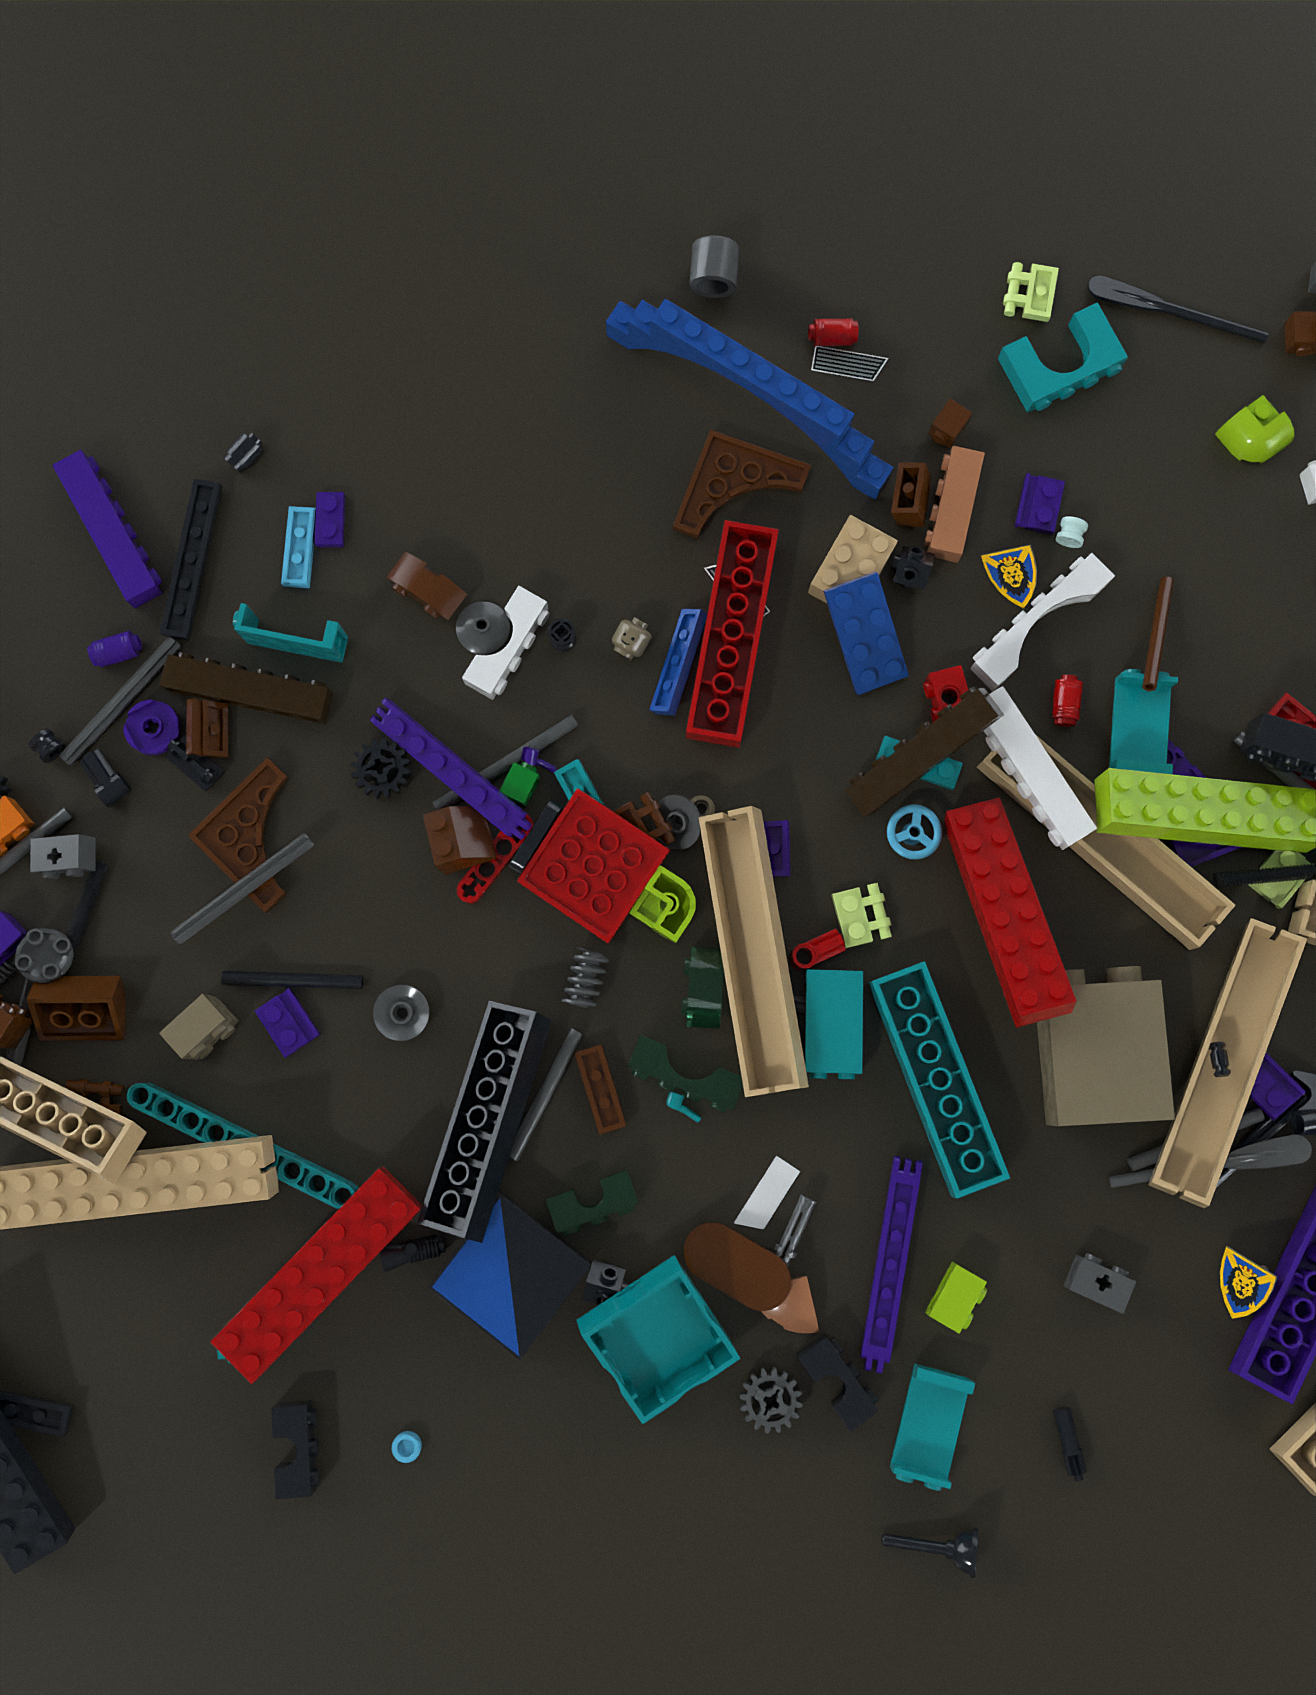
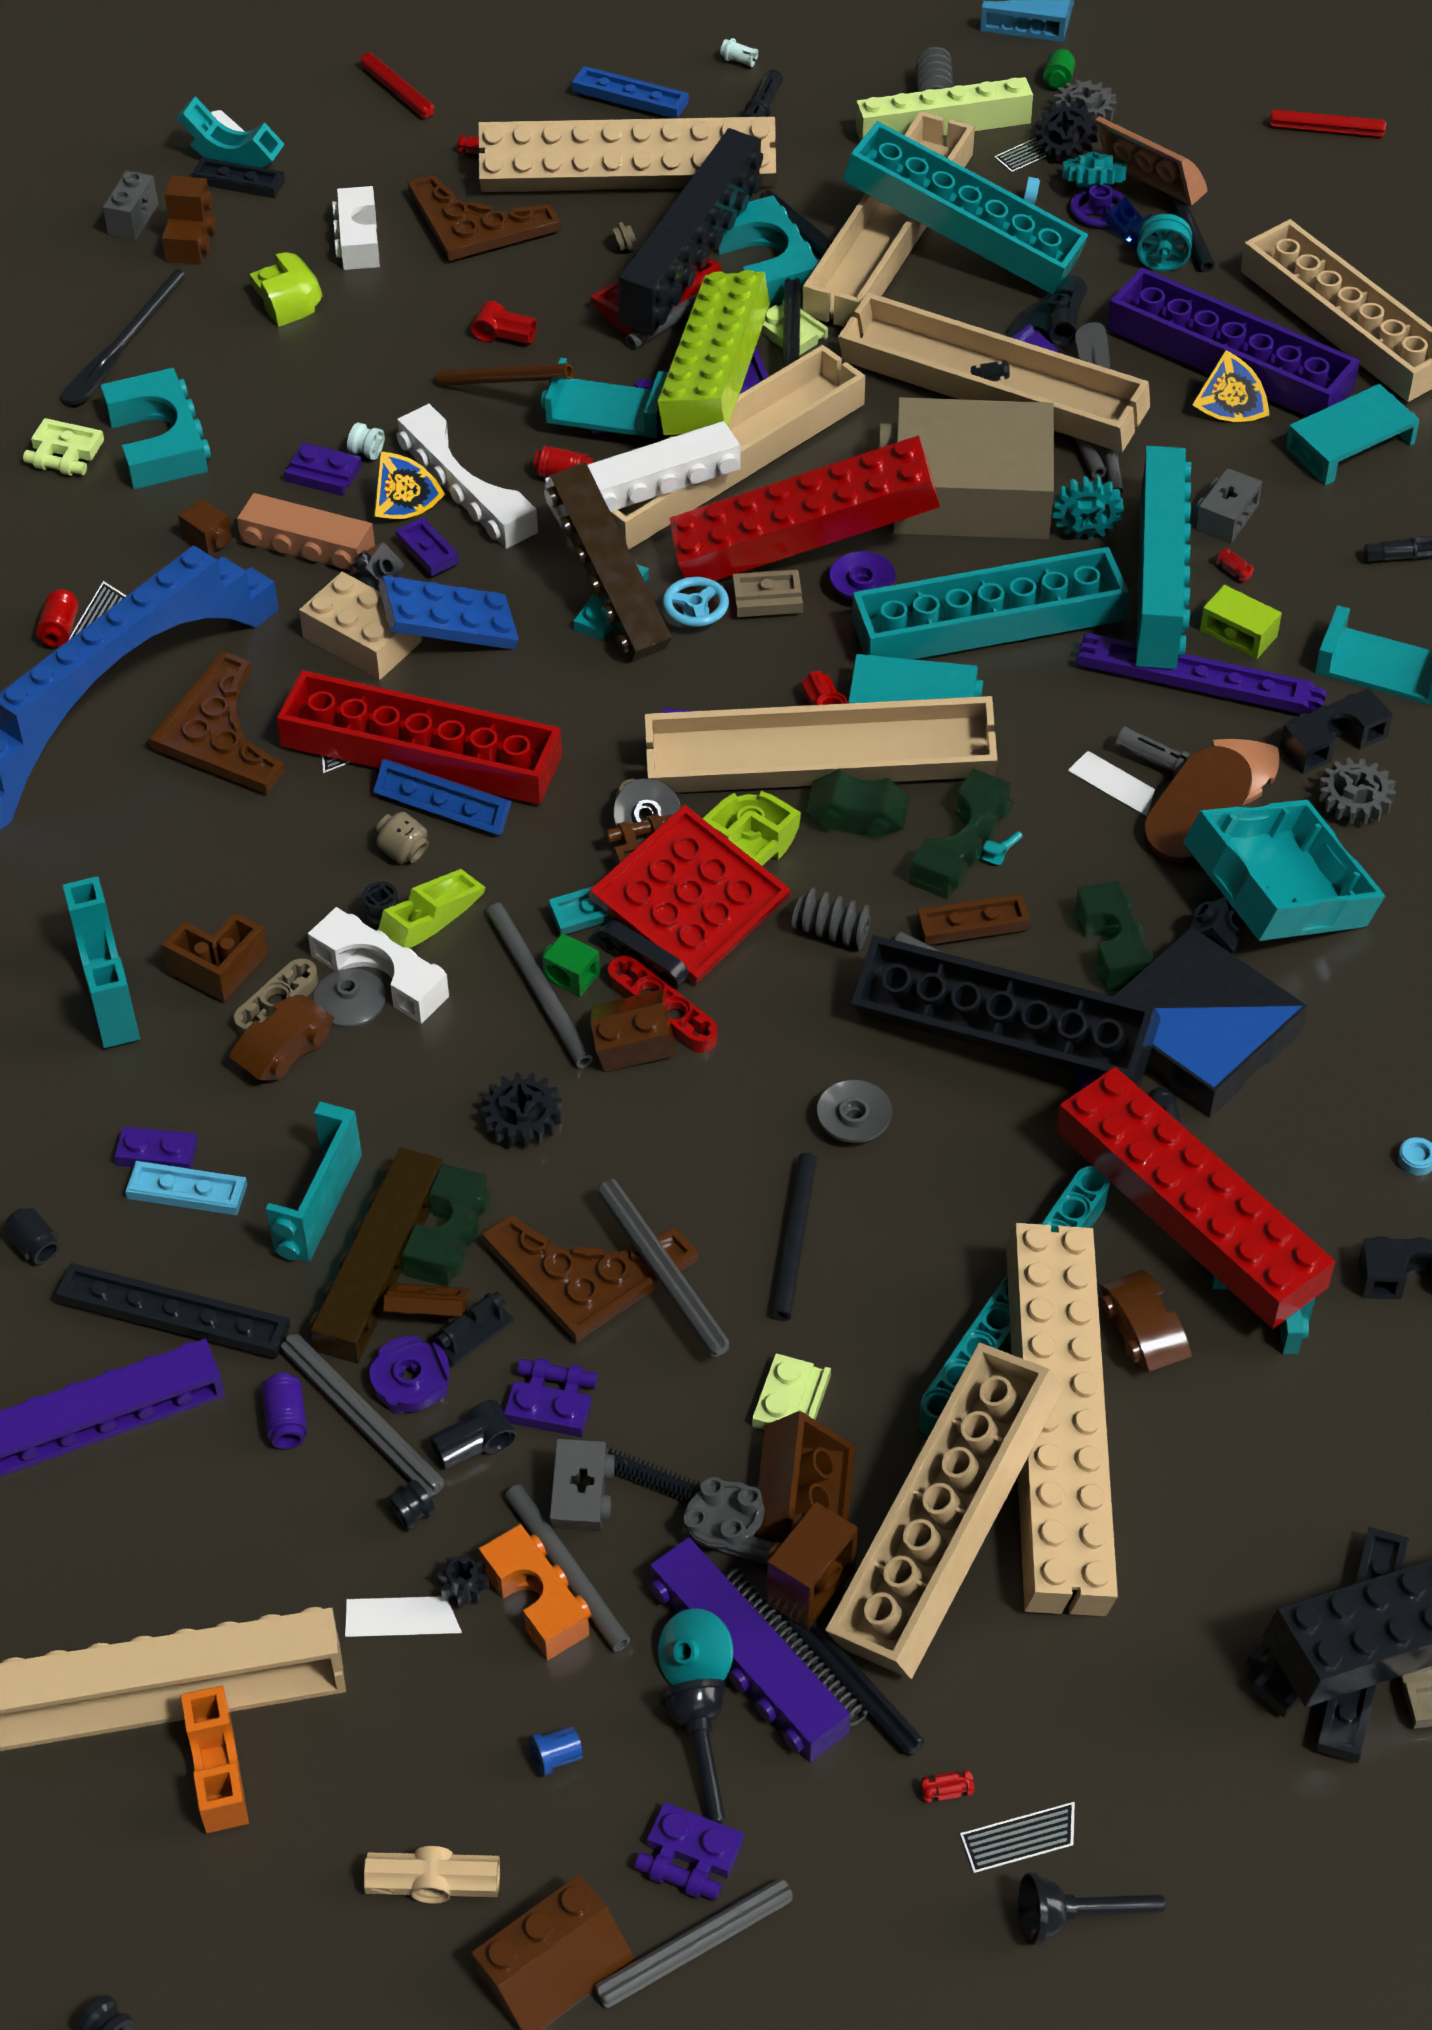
camera: 85 degrees left, 30 degrees down
(137, 822) = (549, 1407): none -> dark purple plate
(157, 991) = (790, 1388): none -> yellowish green plate
(199, 1027) = (850, 1324): dark tan brick -> none
(227, 1240) = (1149, 1331): none -> reddish brown brick
(287, 1022) = (852, 1246): dark purple plate -> none
(297, 738) = (439, 1252): none -> clear green arch
(451, 769) = (536, 1028): dark purple hinge -> none
(459, 559) = (279, 984): none -> dark tan beam
(490, 526) = (218, 961): none -> reddish brown brick
(496, 437) = (101, 962): none -> teal arch
(530, 756) = (537, 945): dark purple hand -> none
(567, 672) = (430, 908): none -> lime slope
(853, 918) = (784, 673): yellowish green plate -> none
(911, 494) = (287, 561): reddish brown brick -> none
(938, 890) = (767, 593): none -> dark tan plate
(944, 681) = (540, 559): red brick -> none
(955, 604) = (427, 546): none -> dark purple plate
(979, 962) = (861, 572): none -> dark purple dish
(1009, 1226) = (1163, 558): none -> teal brick
(1030, 1290) = (1234, 565): none -> red piece
(1064, 1157) = (1087, 507): none -> teal gear
(1212, 1397) = (1349, 429): none -> teal panel
(1239, 616) = (495, 322): none -> red piece

